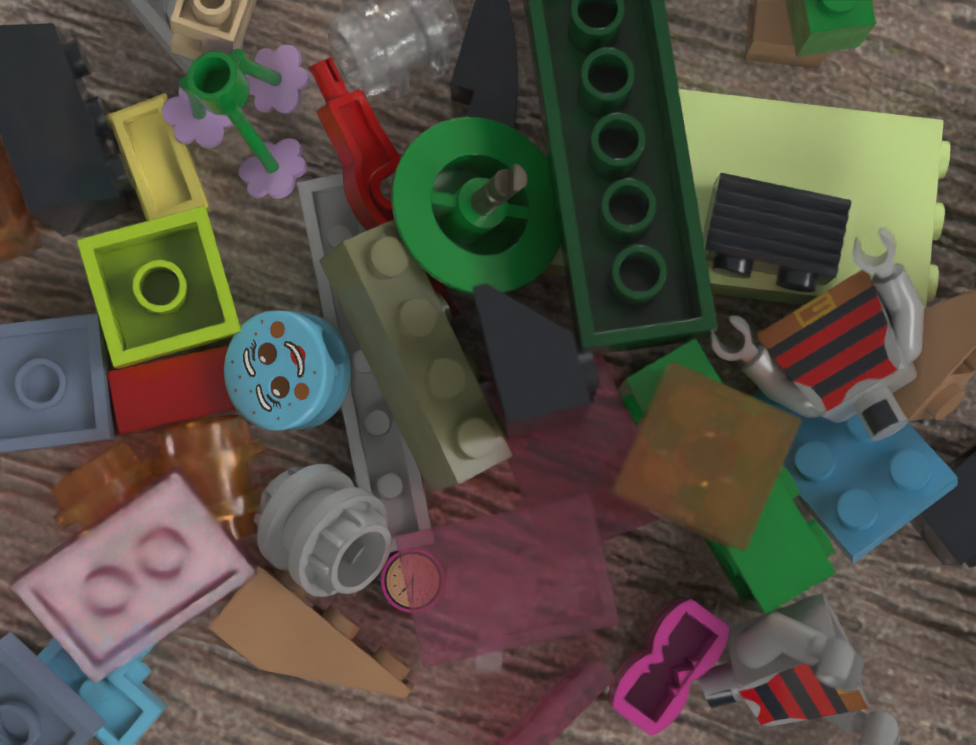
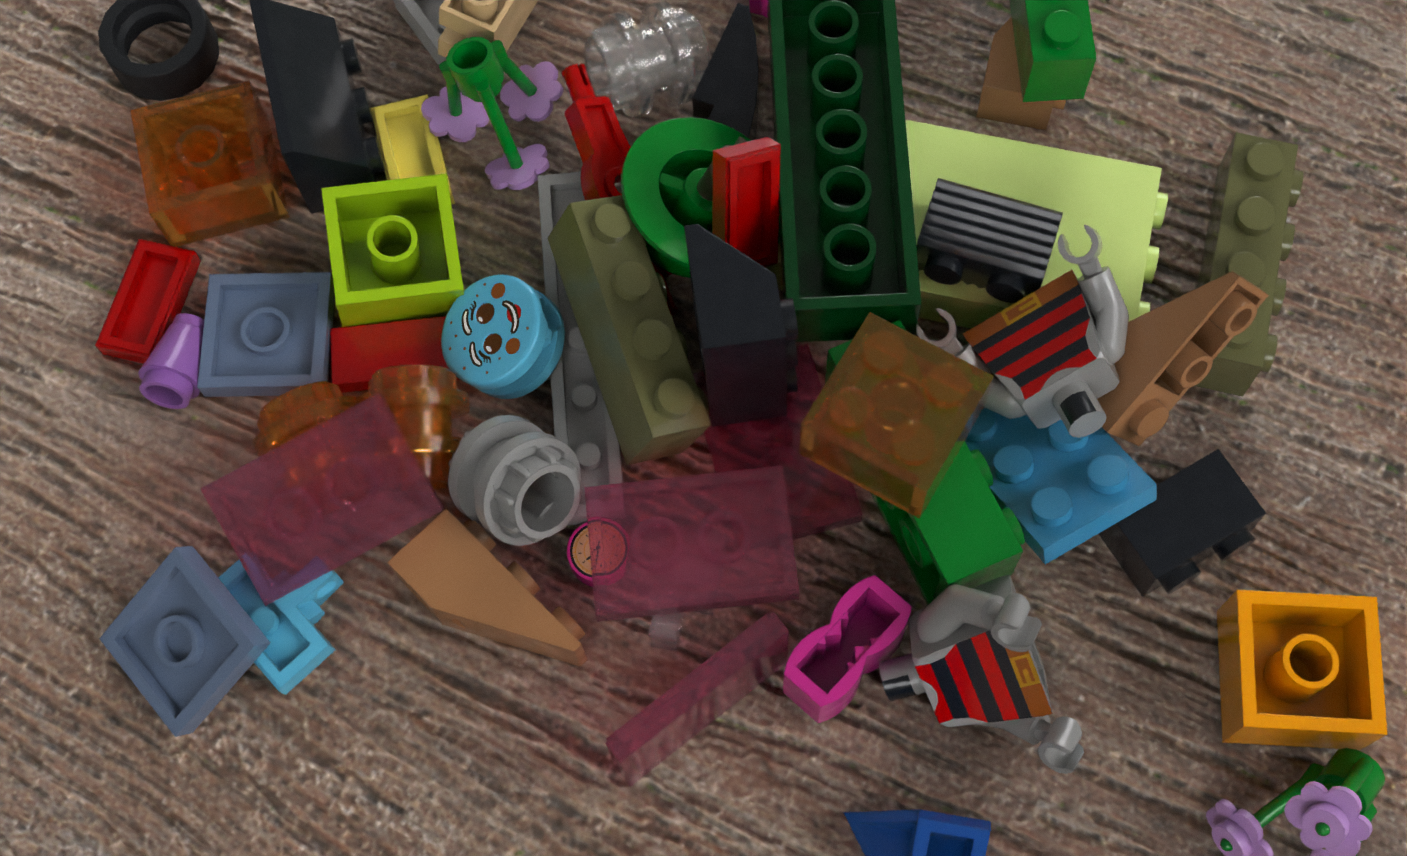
camera: 10 degrees right, 15 degrees down
(527, 232) = (748, 198): none -> red tile

